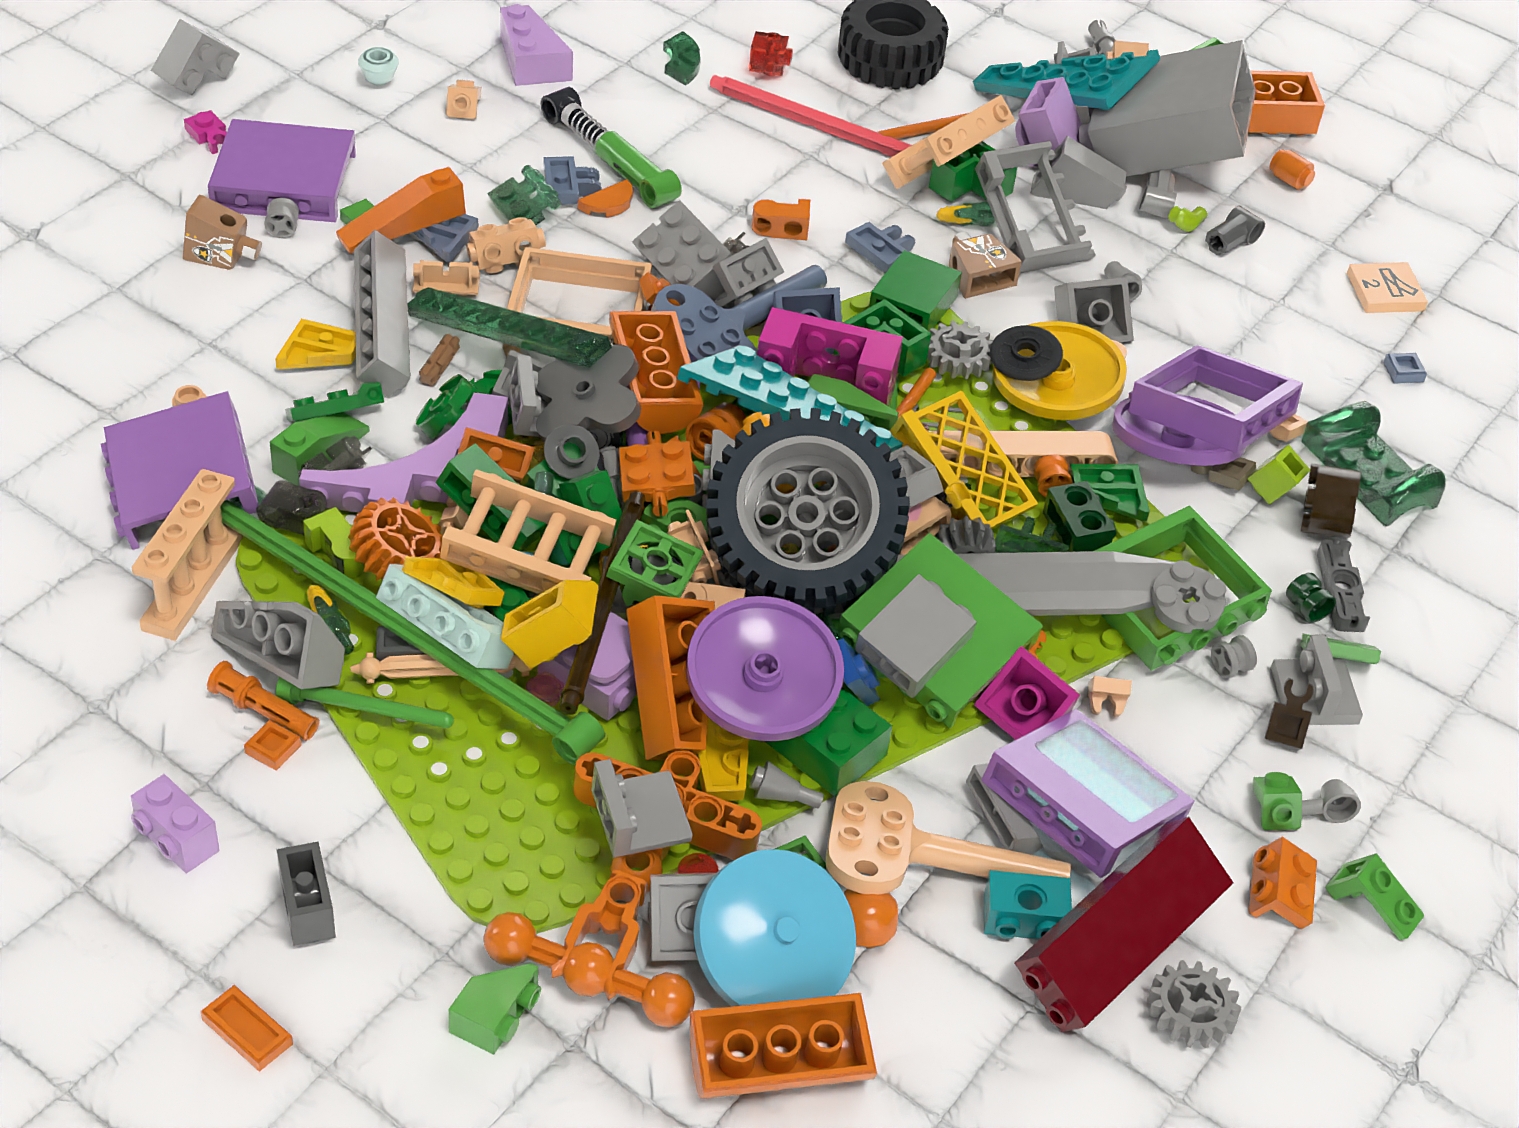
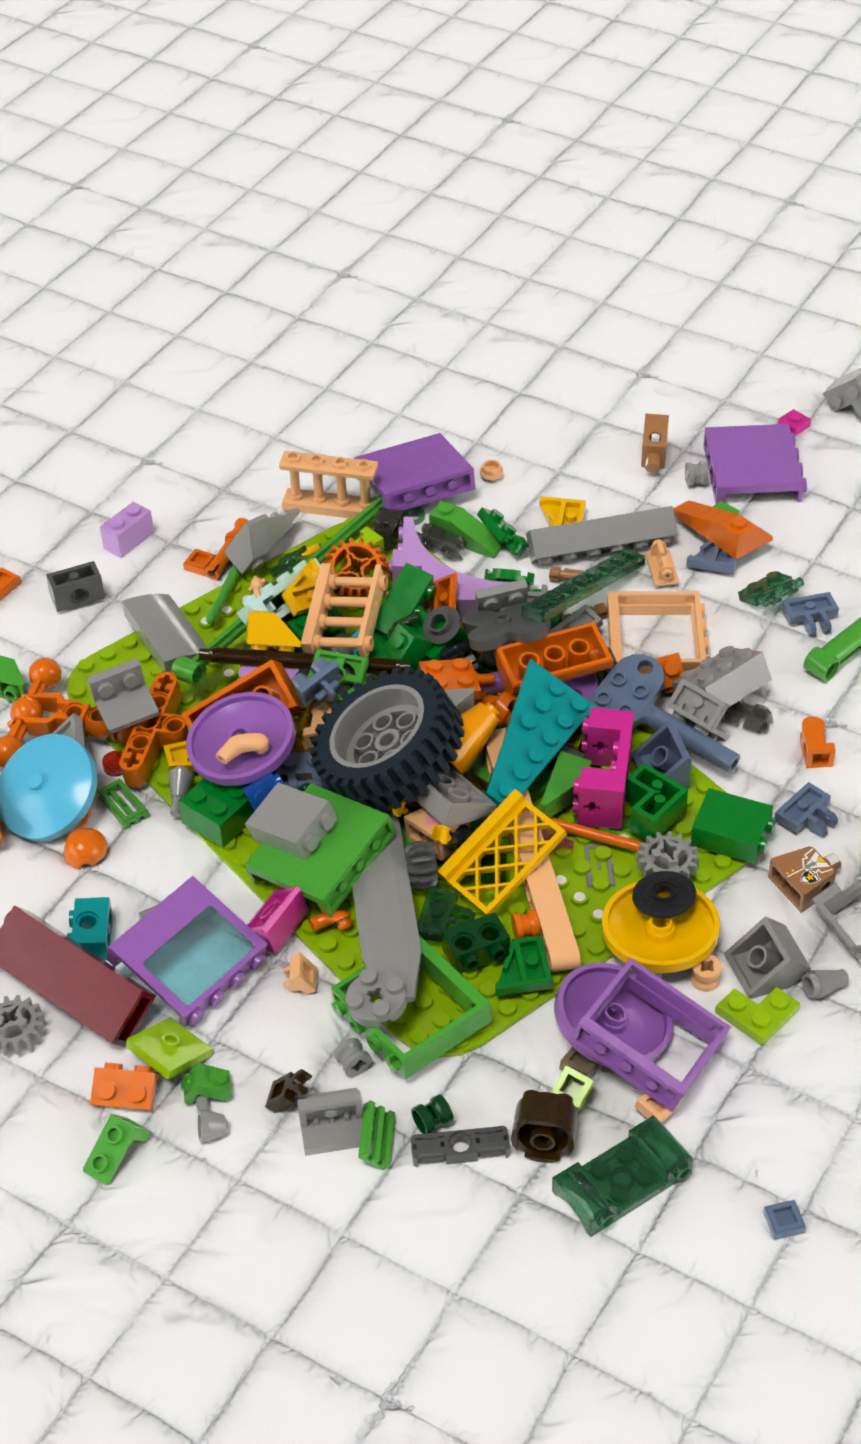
camera: 90 degrees right, 0 degrees up
(446, 787) = (162, 628): none -> light grey slope
(499, 245) = (709, 582): light nougat brick -> none
(609, 200) = (799, 640): orange tile -> none
(687, 567) = (320, 685): none -> sand blue hips
(793, 661) = (242, 743): none -> light nougat arm
(883, 841) = (140, 843): light nougat piece -> none
(1160, 337) = (761, 1019): none -> lime plate
(1236, 828) = (168, 1047): none -> lime plate

